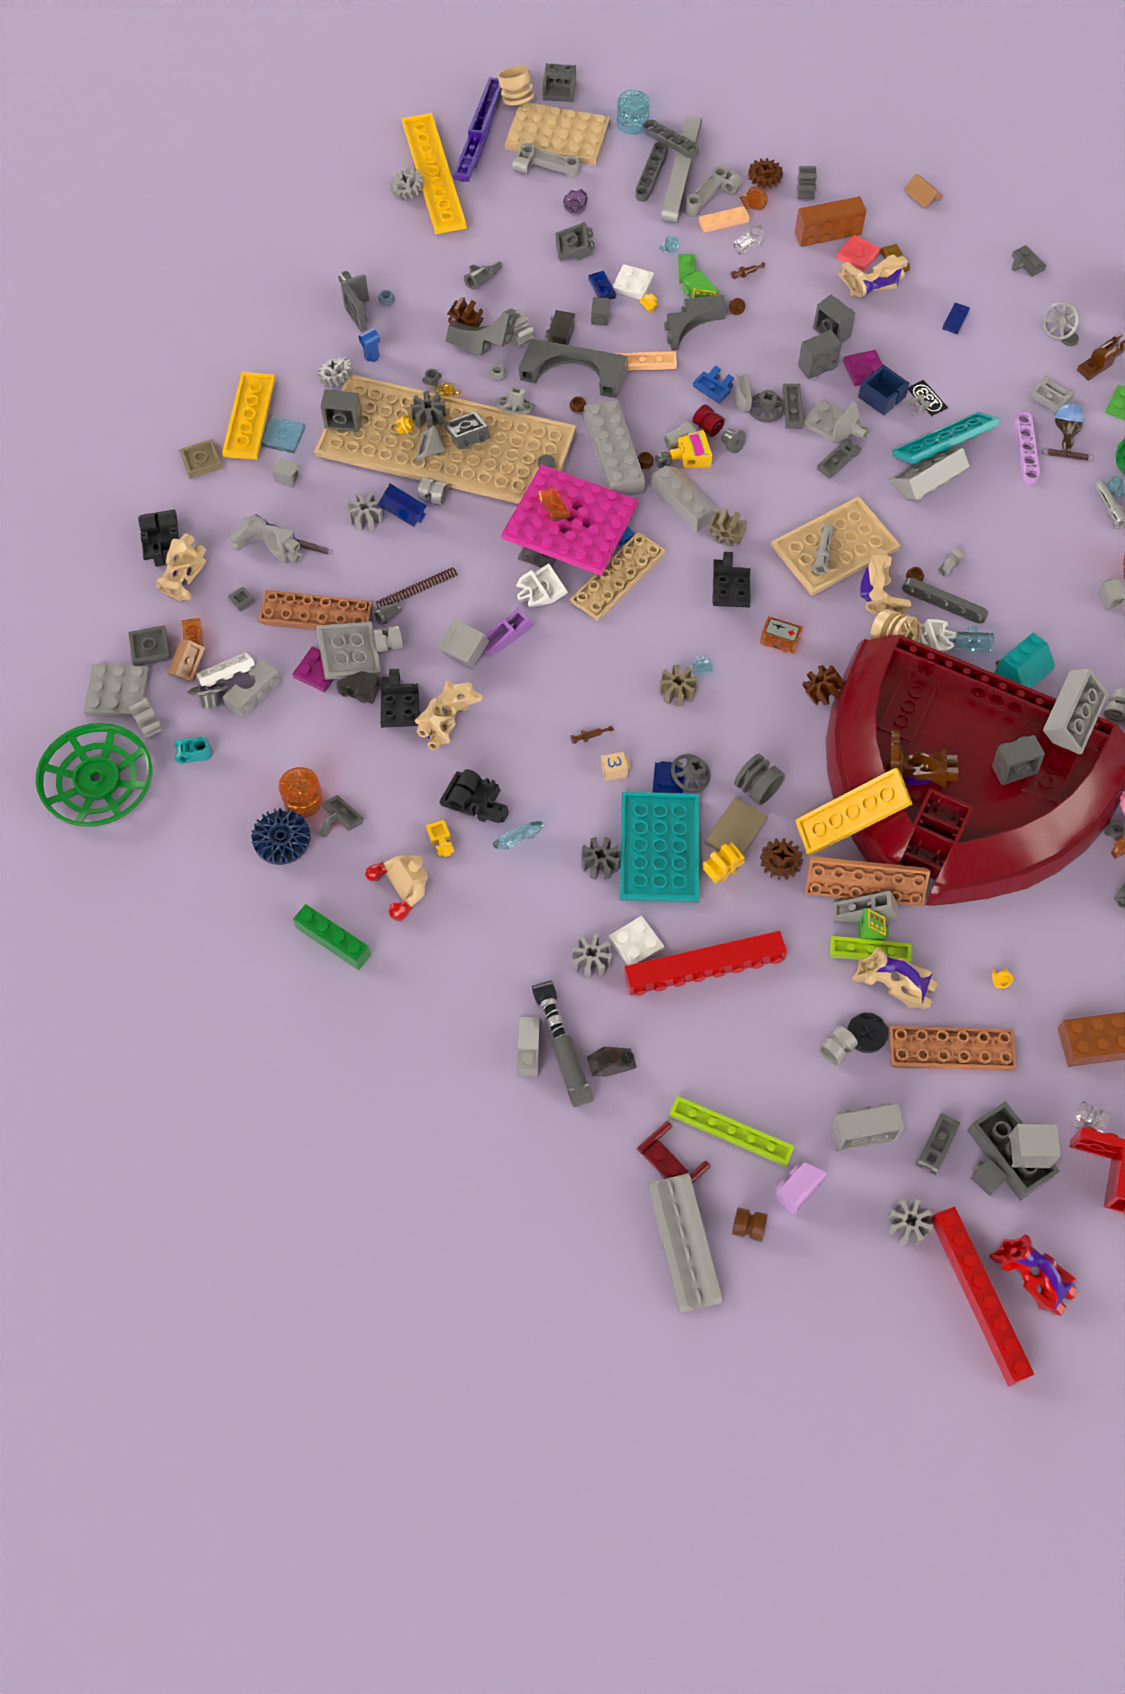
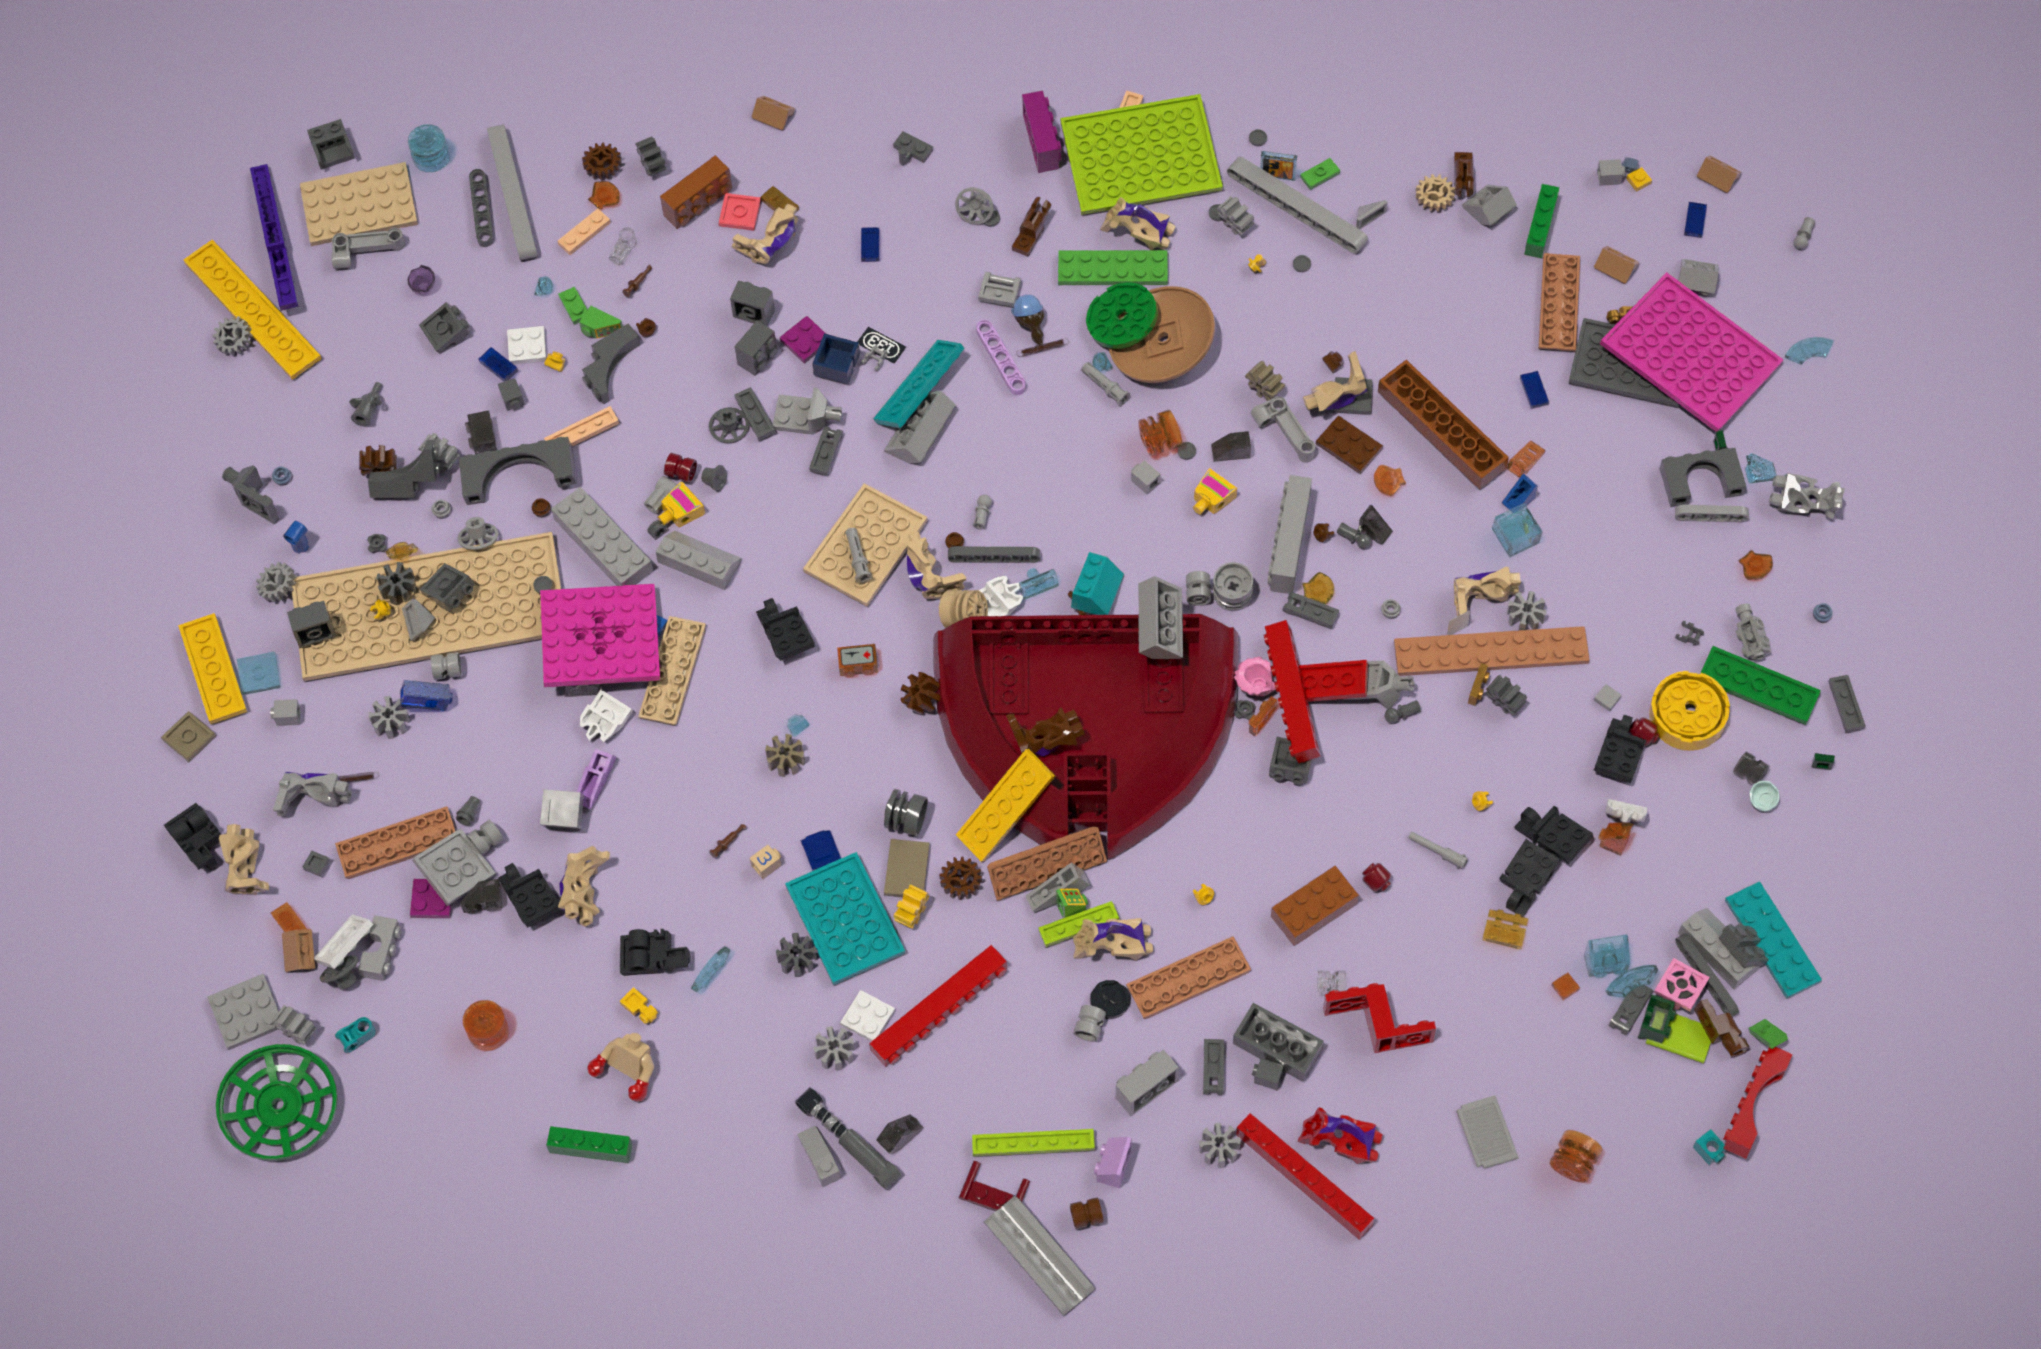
camera: 25 degrees left, 0 degrees up
(149, 645) = (252, 952): dark grey plate -> none
(281, 837) = (485, 1064): dark blue wheel -> none
(340, 812) = (533, 1026): dark grey plate -> none
(412, 587) = (483, 773): reddish brown piece -> none
(516, 85) = (289, 170): tan wheel -> none
(554, 504) = (579, 630): clear orange plate -> none
(645, 460) = (638, 537): reddish brown plate -> none
(672, 143) = (491, 169): dark grey beam -> none
(692, 771) = (839, 832): dark grey wheel -> none
(712, 387) = (666, 429): blue plate -> none
(721, 179) = (567, 187): light grey piece -> none
(727, 527) = (754, 574): dark tan gear -> none
(743, 393) = (699, 422): light grey slope -> none
(1018, 759) = (1129, 688): dark grey brick -> none
(1035, 1145) = (1292, 1029): light grey piece -> none

